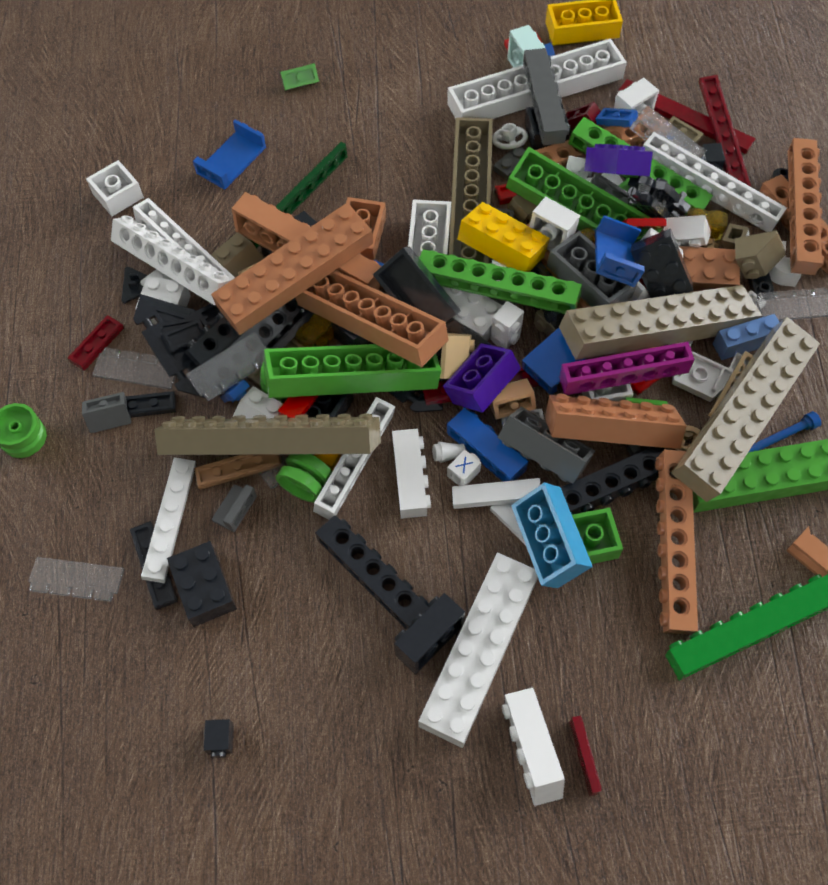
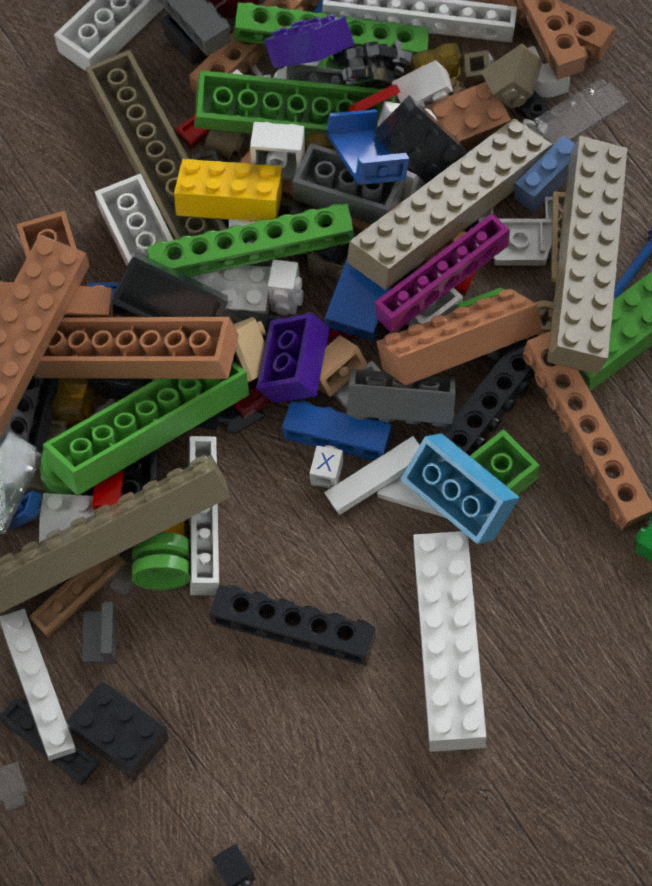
camera: 25 degrees left, 0 degrees up
(409, 473) = (270, 500): white brick -> none
(429, 632) = (389, 651): black brick -> none
(446, 451) = (296, 458): white cone -> none
(507, 164) = (176, 90): dark grey plate -> none
(509, 132) = (155, 56): white piece -> none
(534, 745) = (556, 704): white wedge -> none
(577, 166) = (258, 63): white bracket -> none
(585, 755) = (609, 687): dark red tile -> none

